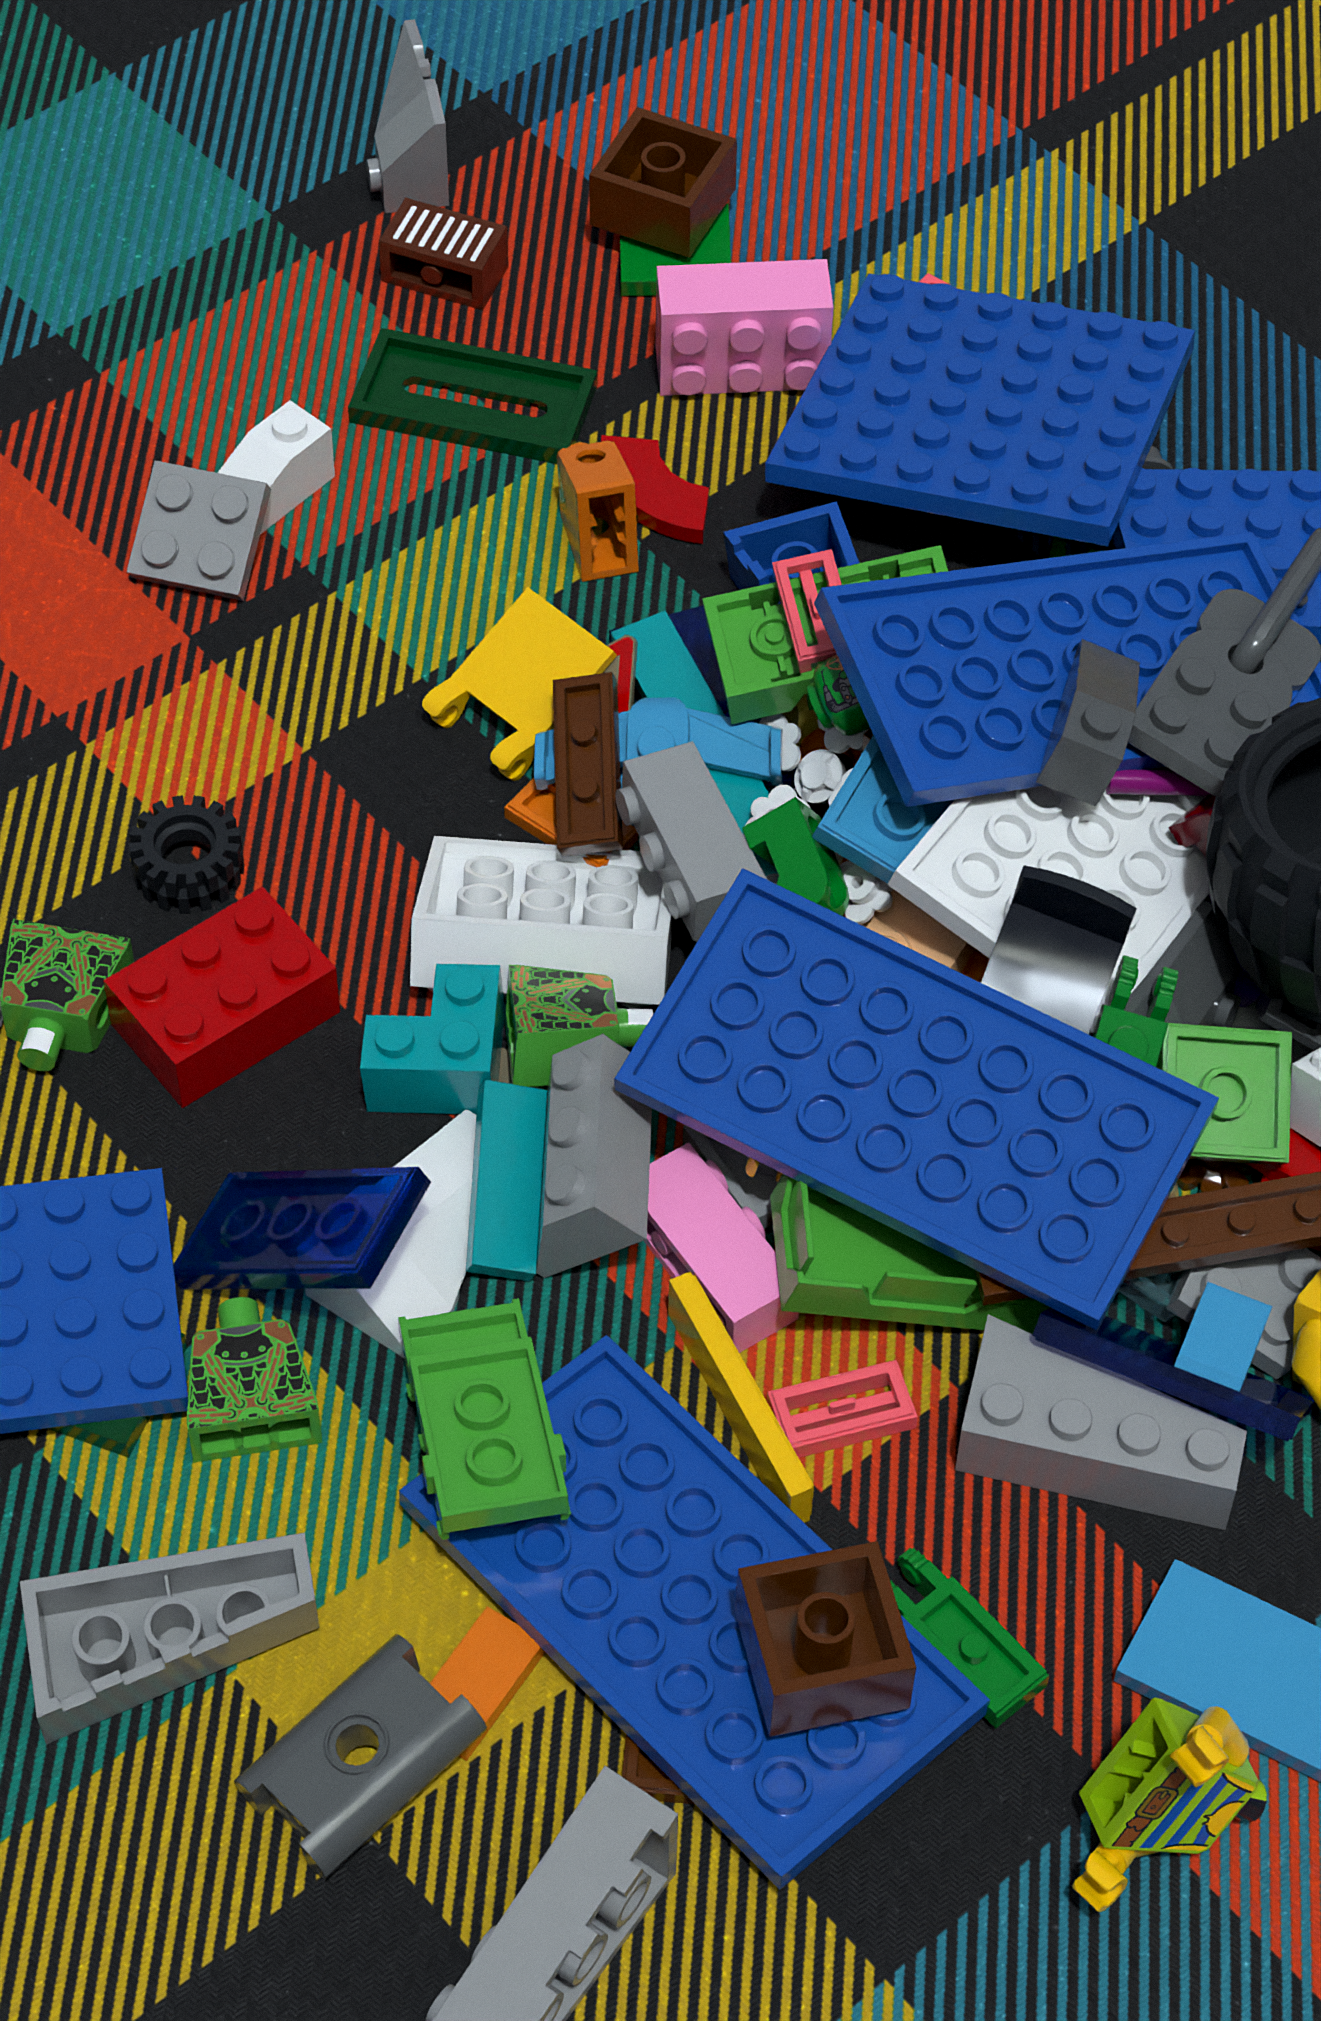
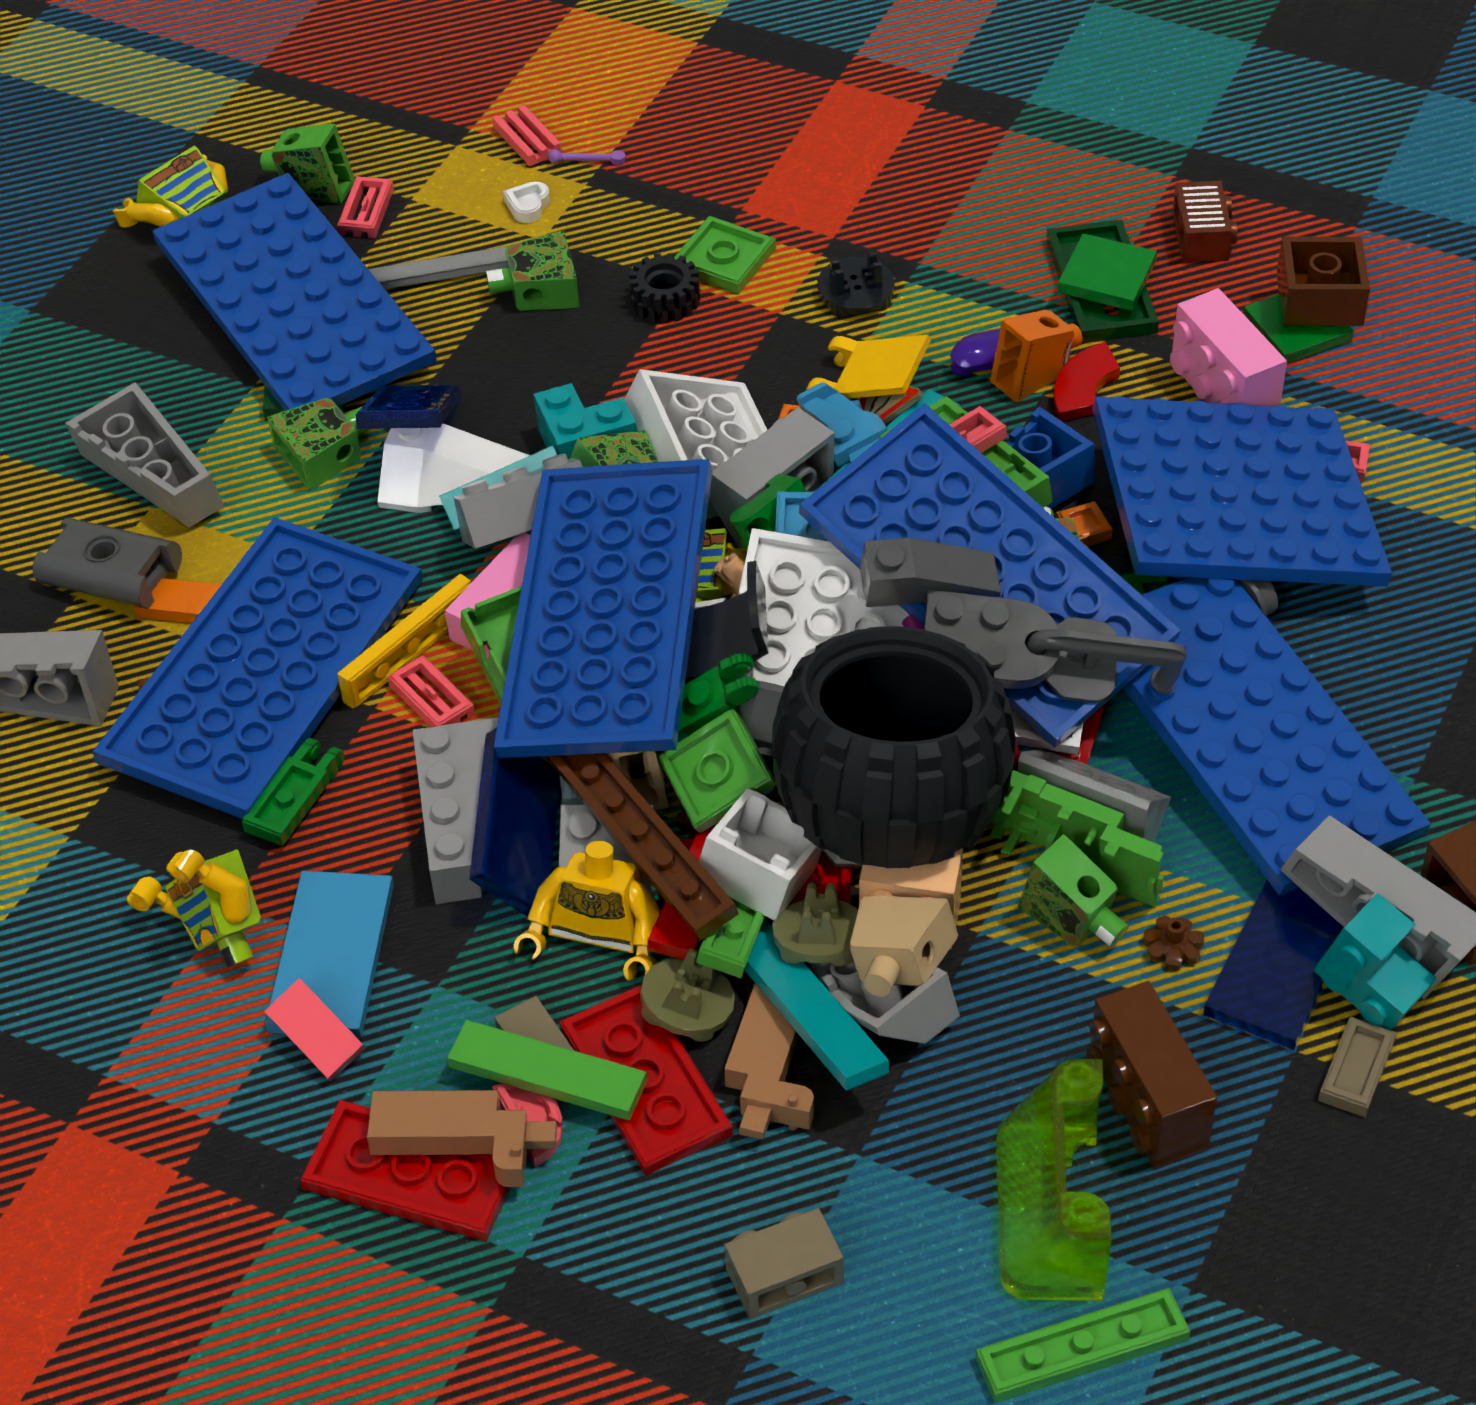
camera: 70 degrees right, 5 degrees down
(147, 761) = (727, 253): none -> bright green tile
(199, 530) = (898, 201): light grey plate -> none
(222, 996) = (568, 334): red brick -> none
(289, 454) = (959, 214): white slope -> none
(300, 641) = (856, 285): none -> black plate
(410, 131) = (1300, 166): light grey wedge -> none
(483, 377) = (1107, 272): none -> green tile
(483, 1418) = (324, 521): bright green piece -> none
(538, 552) = (974, 352): none -> dark purple arm
(587, 764) = (829, 401): reddish brown tile -> none
(824, 1638) = (233, 705): reddish brown brick -> none
(1223, 1336) = (527, 829): dark azure slope -> none

